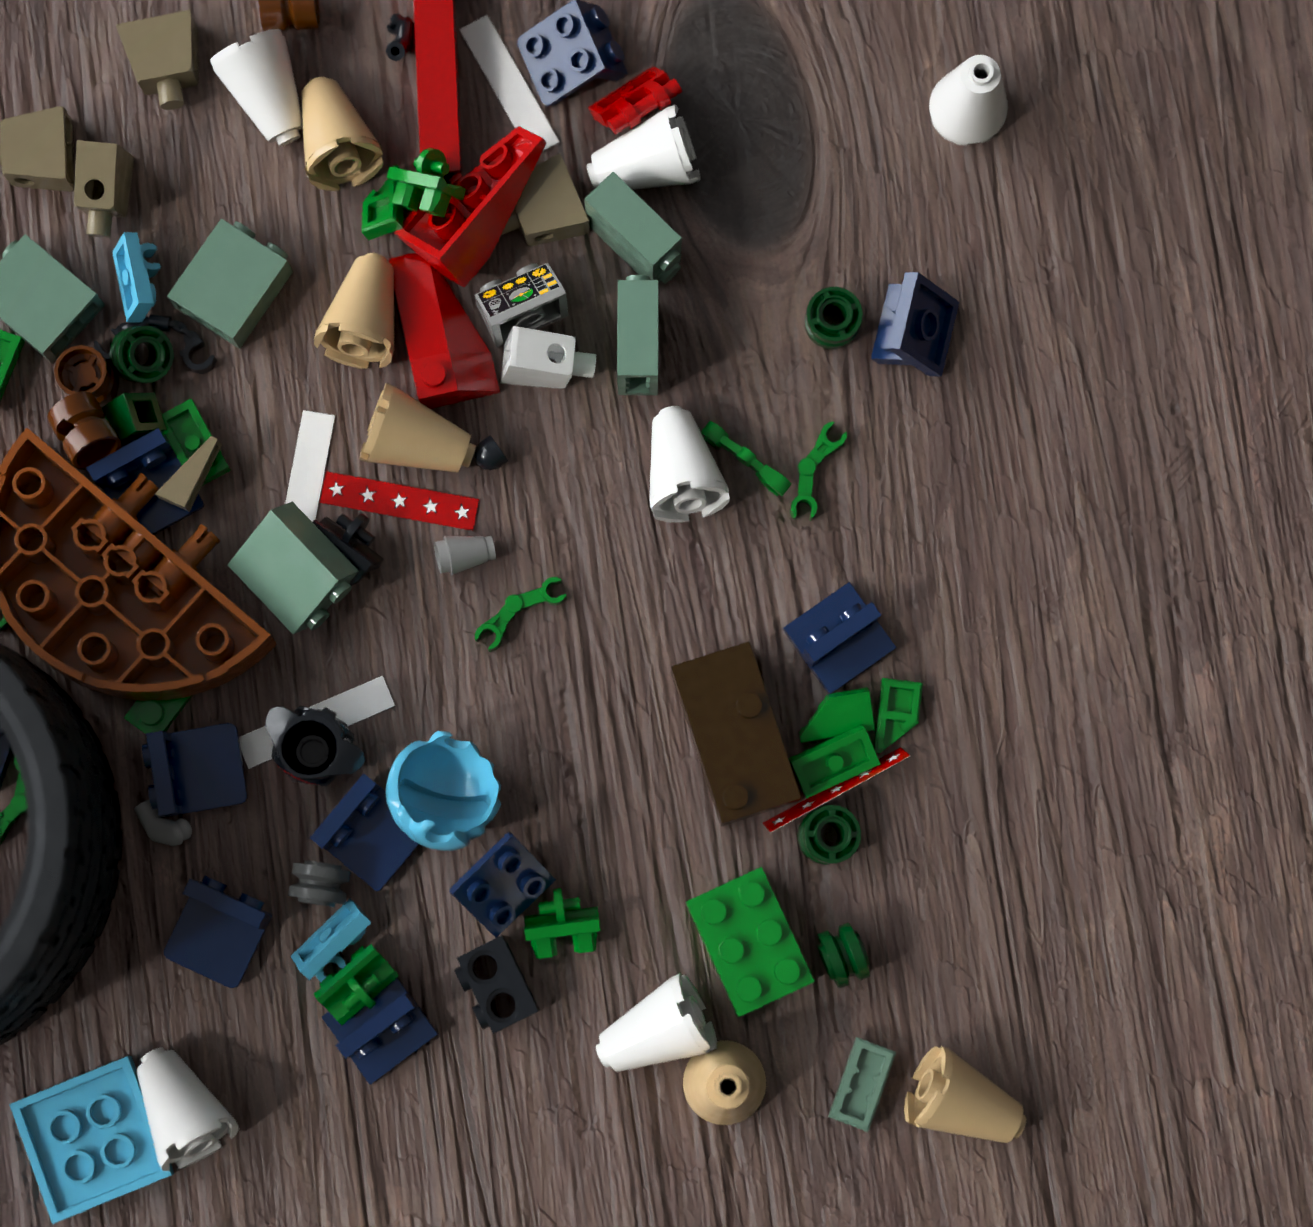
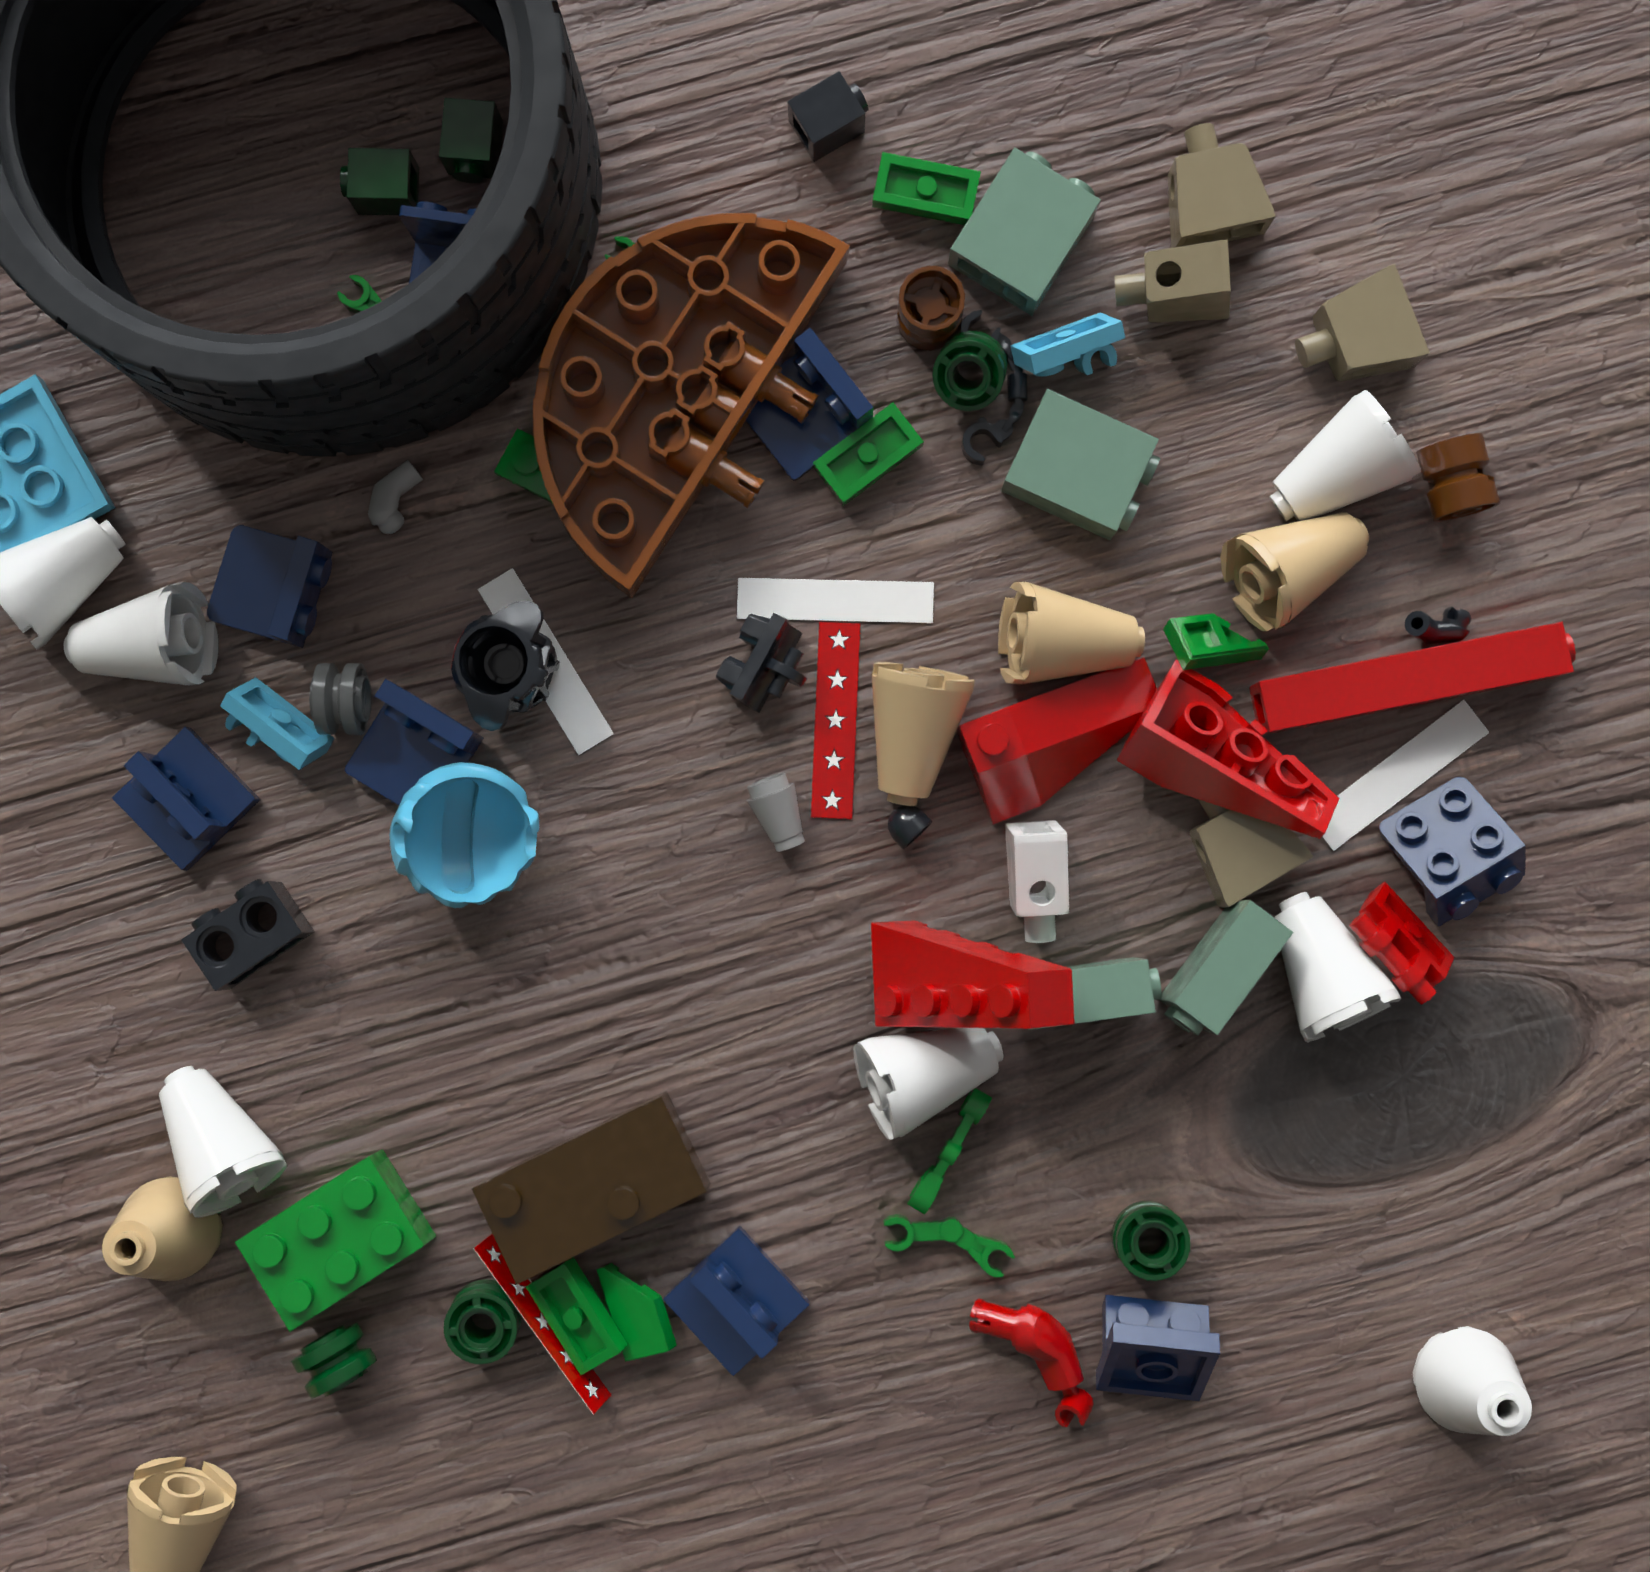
camera: 90 degrees right, 5 degrees up
(83, 429) = (861, 311): reddish brown wheel -> none
(134, 416) = (882, 371): dark green brick -> none
(188, 479) = (810, 453): dark tan piece -> none
(195, 769) = (461, 524): dark blue bracket -> none
(244, 1038) = (148, 638): none -> white cone
(293, 568) = (722, 604): sand green brick -> none
(355, 984) = (222, 764): green hips -> none
(428, 178) = (1261, 693): green hips -> none
(502, 884) = (359, 927): dark blue bracket -> none
(514, 605) = (722, 883): green piece -> none
(524, 301) = (1110, 836): light grey slope -> none
(561, 919) = (332, 1002): green hips -> none
(614, 430) = (958, 983): none -> red wedge
(862, 1084) = (183, 1401): sand green plate -> none
(897, 711) = (653, 1385): green tile -> none
(899, 407) = (1045, 1341): none -> red arm

